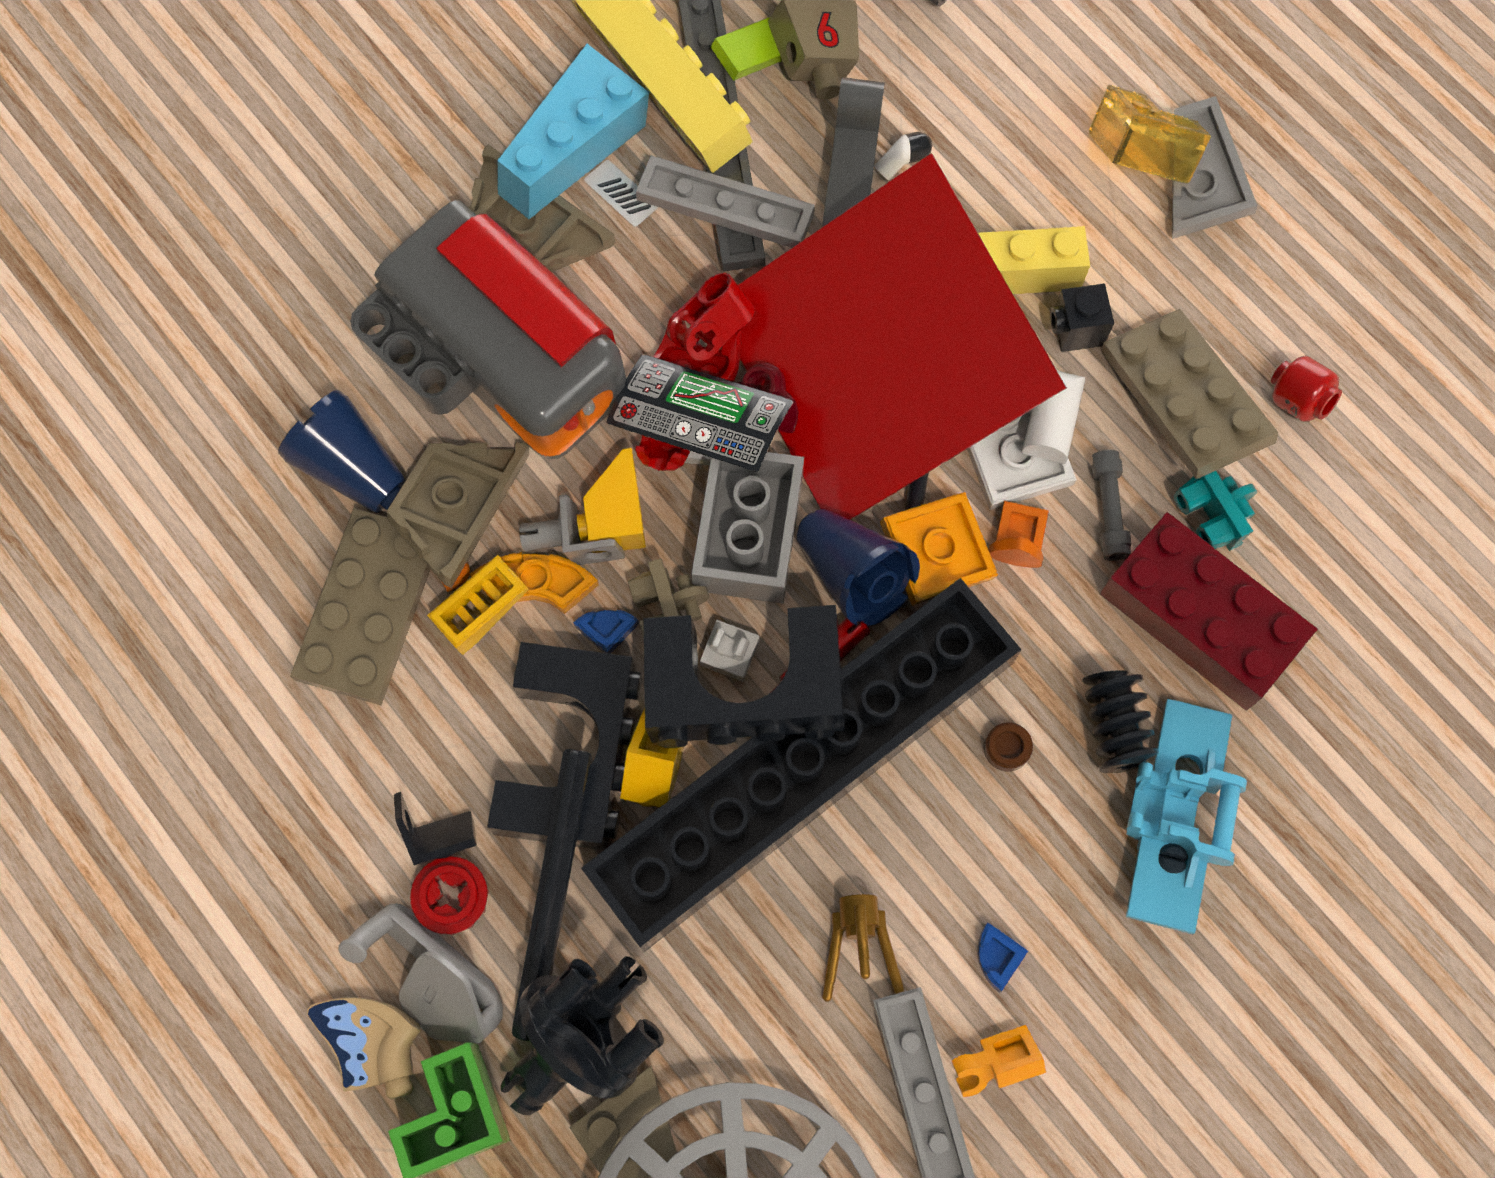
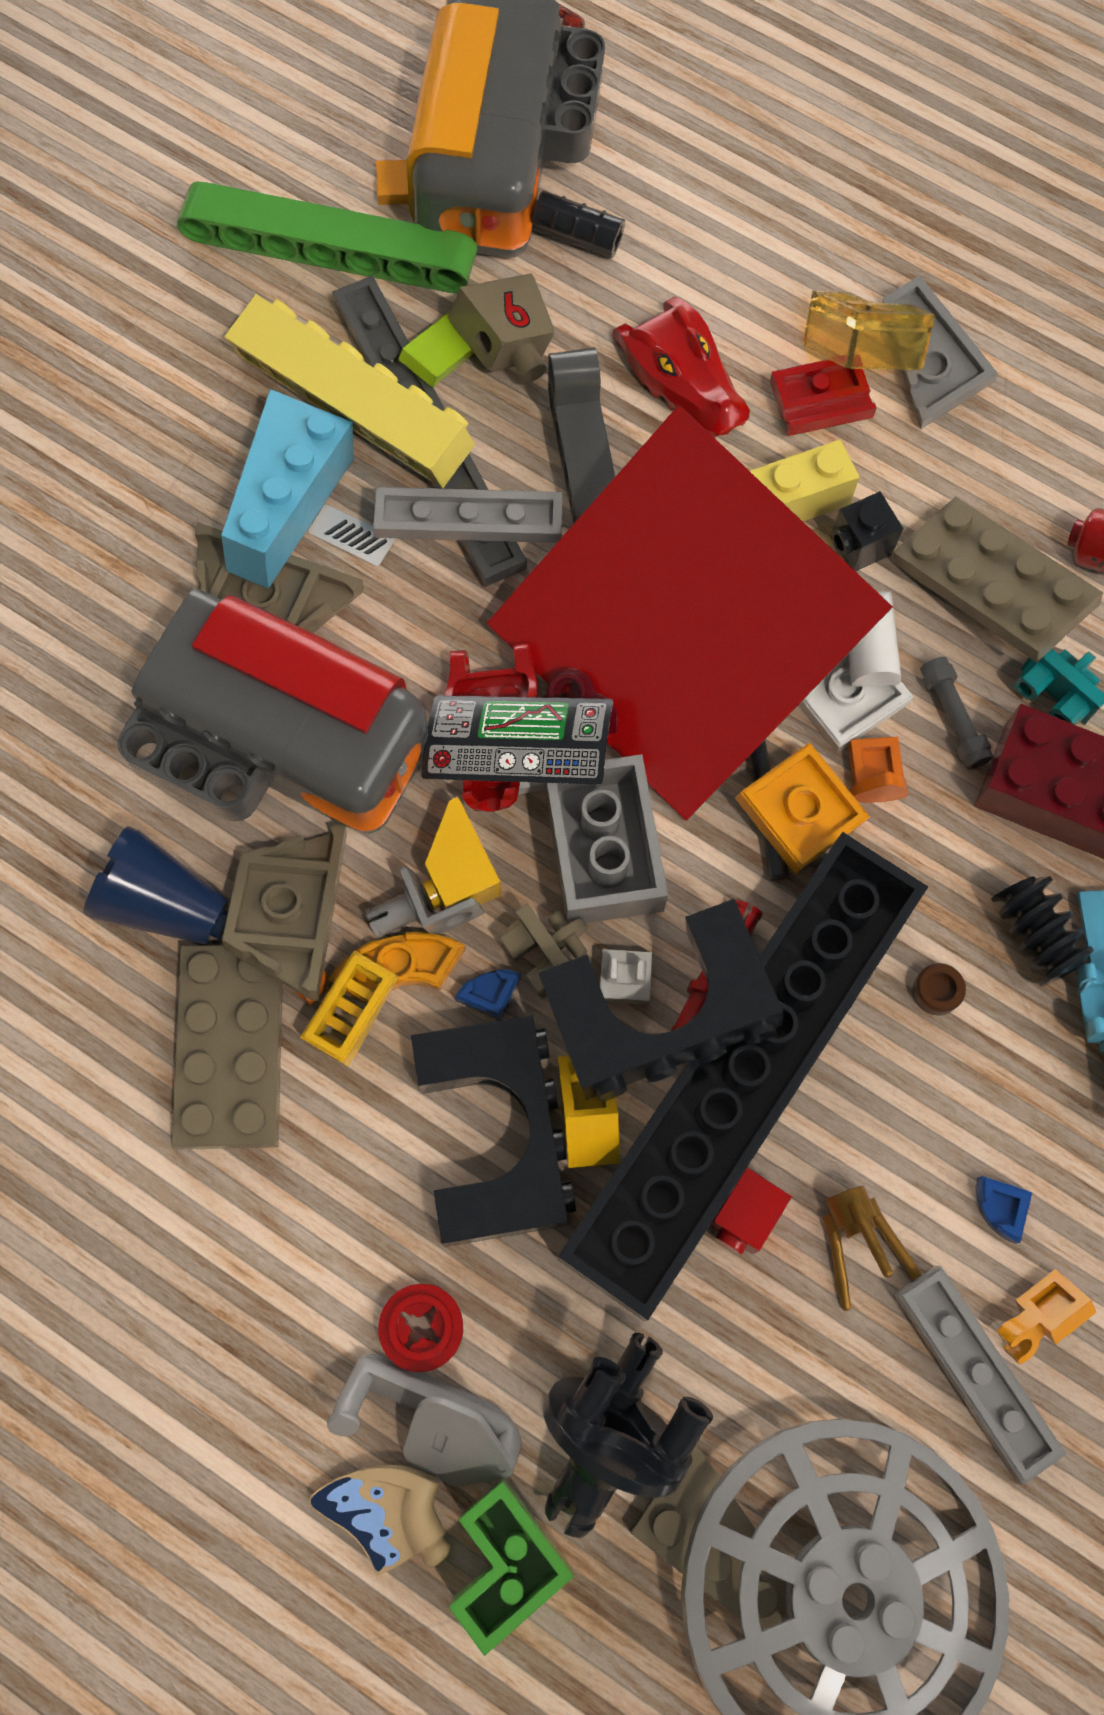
camera: 20 degrees left, 0 degrees up
(436, 838) = (388, 1270): black bracket -> none
(554, 873) = (531, 1281): black axle -> none
(714, 317) = (499, 636): red piece -> none
(765, 887) = (749, 1214): none -> red brick
(858, 565) = (730, 848): dark blue cone -> none
(906, 150) = (632, 411): white arm -> none
(969, 121) = (682, 363): none -> red animal
(1086, 183) = (821, 396): none -> red plate

